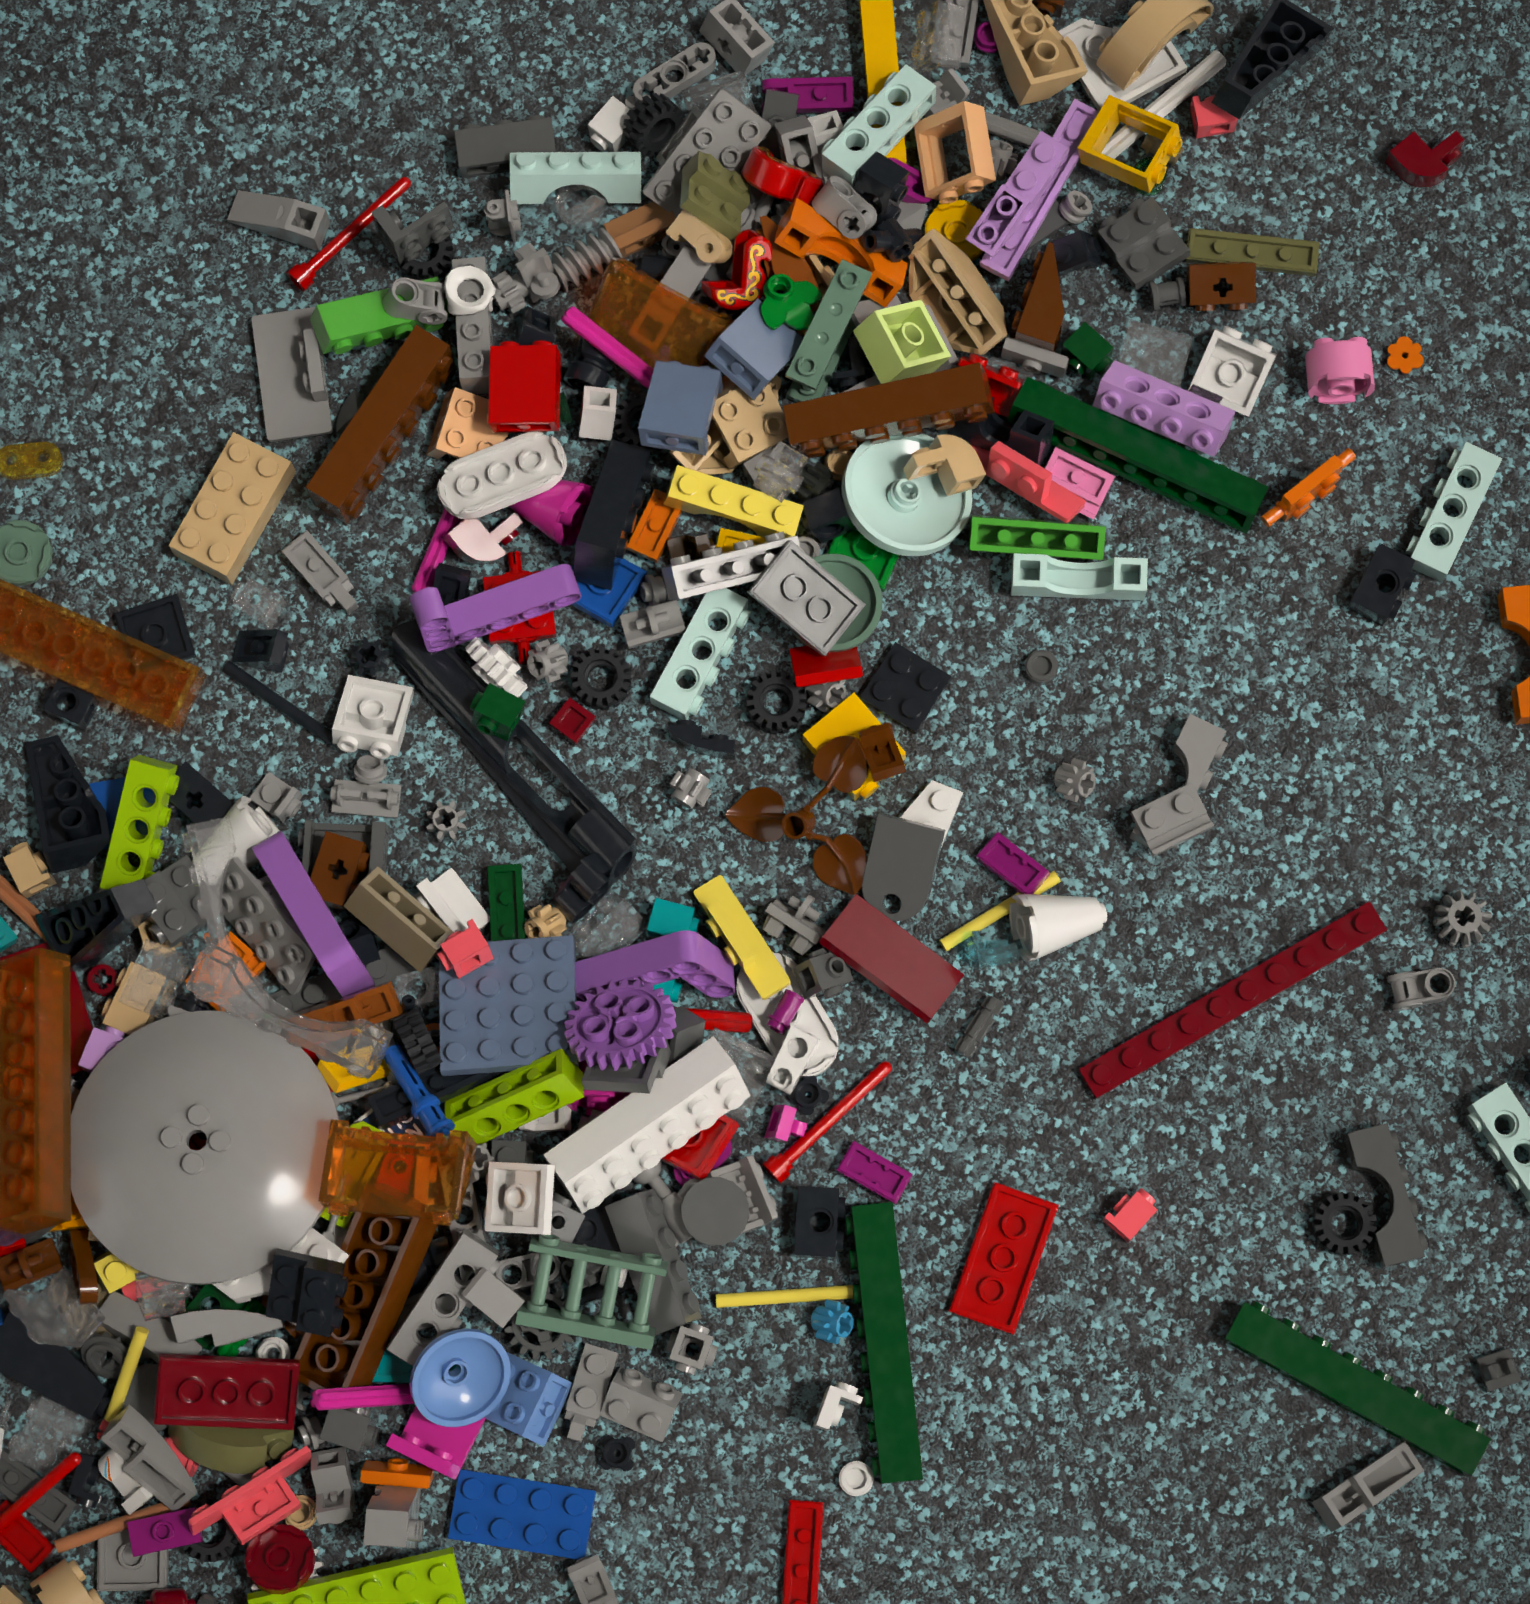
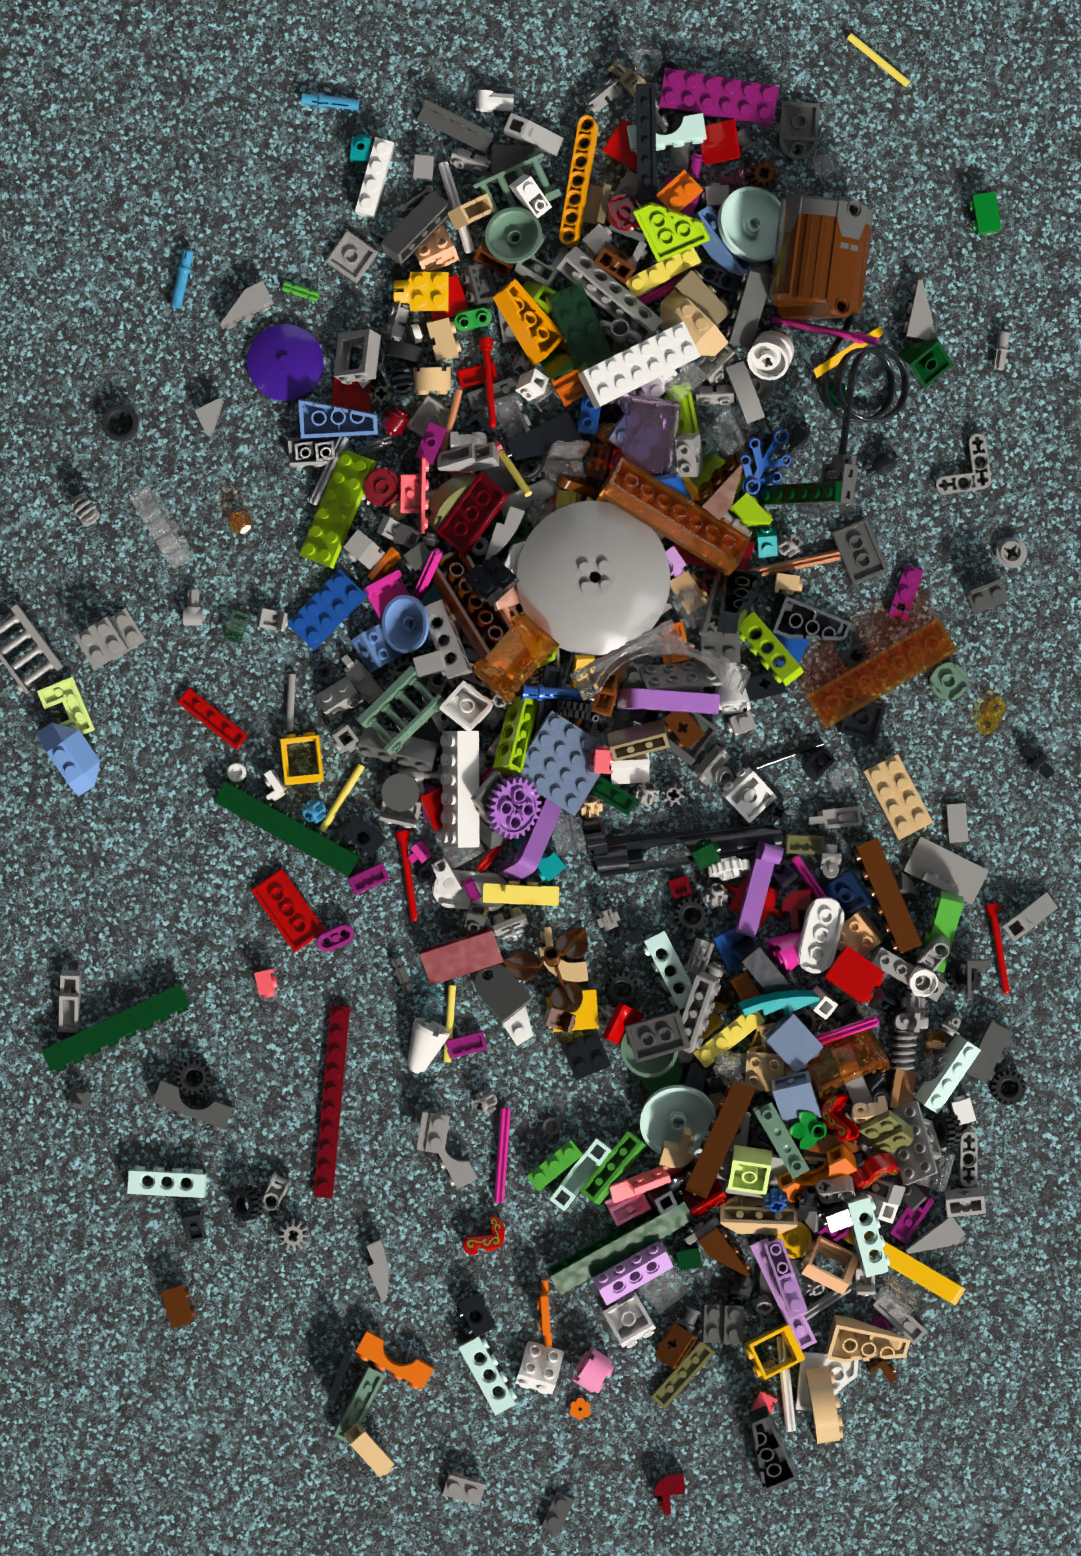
camera: 120 degrees right, 10 degrees up
(50, 353) = (1037, 761): none -> black axle
(126, 954) = (710, 603): none -> dark grey bar
(213, 405) = (957, 823): none -> light grey tile
(387, 535) = (830, 861): none -> light grey hips
(388, 589) = (805, 844): none -> olive plate
(414, 482) = (848, 892): none -> dark blue plate
(469, 858) = (647, 793): none -> light grey gear
(534, 70) = (996, 1087): none -> black tyre
(541, 226) = (935, 1040): none -> clear orange tile
(631, 460) = (784, 1000): none -> teal slope
(697, 1471) = (290, 702): none -> light grey bar
(796, 1370) = (308, 737): none -> yellow window
(799, 787) = (569, 970): none -> tan arch
(808, 40) = (941, 1235): none -> light grey slope
(918, 282) = (776, 1200): none -> blue gear
(995, 1159) = (335, 937): none -> magenta plate
(1092, 622) = (554, 1165): none -> bright green brick
(1132, 706) = (502, 1152): none -> dark pink axle
(1269, 642) = (486, 1241): none -> red animal
(1389, 447) = (540, 1367): none -> white bracket
(1418, 765) = (379, 1268): none -> light grey slope
(1481, 1023) = (254, 1203): none -> black tyre

